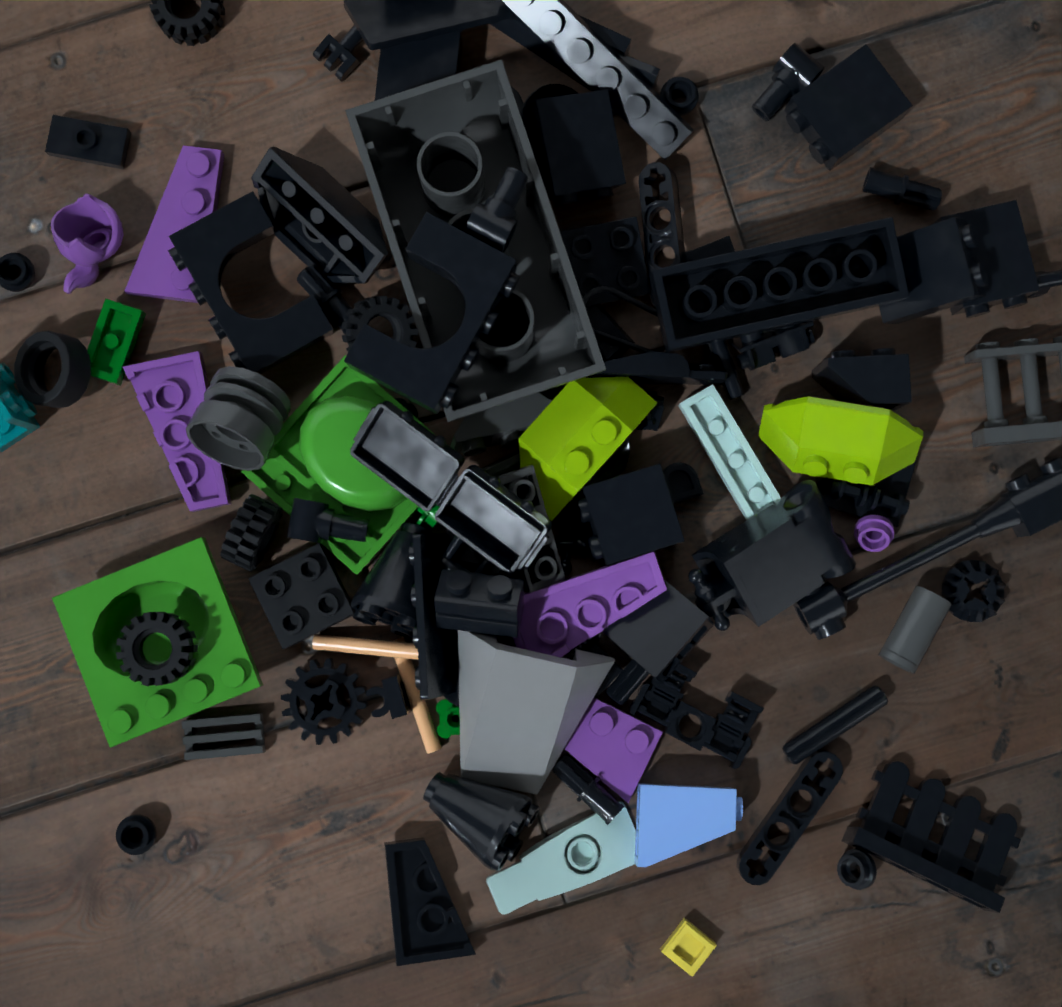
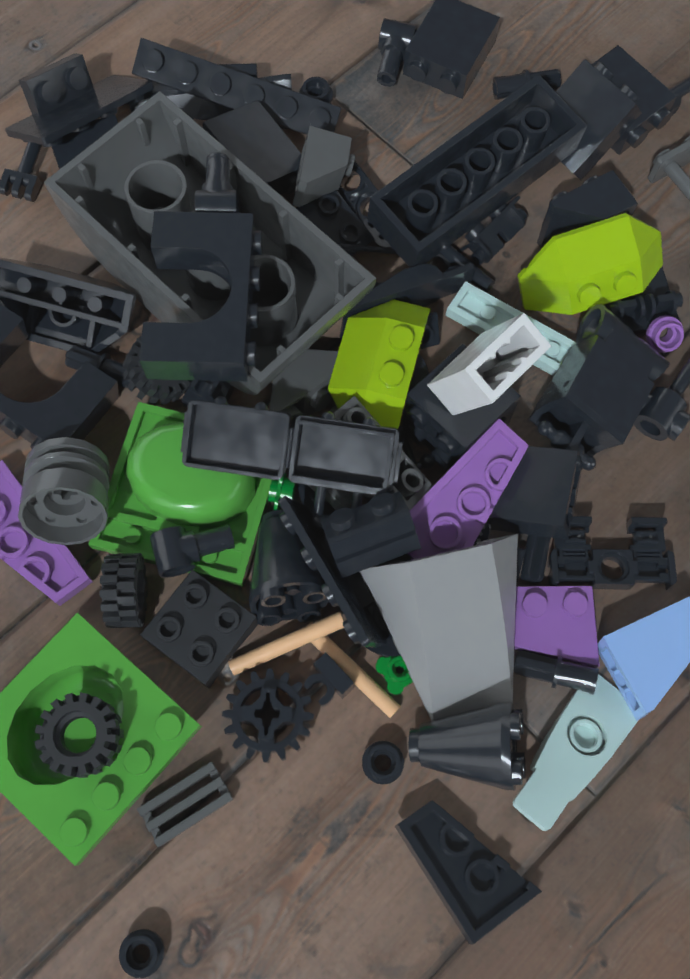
camera: 30 degrees left, 15 degrees down
(392, 795) = (392, 752): none -> black plate
(633, 198) = (322, 165): none -> dark grey slope
(657, 513) = (489, 365): none -> white brick

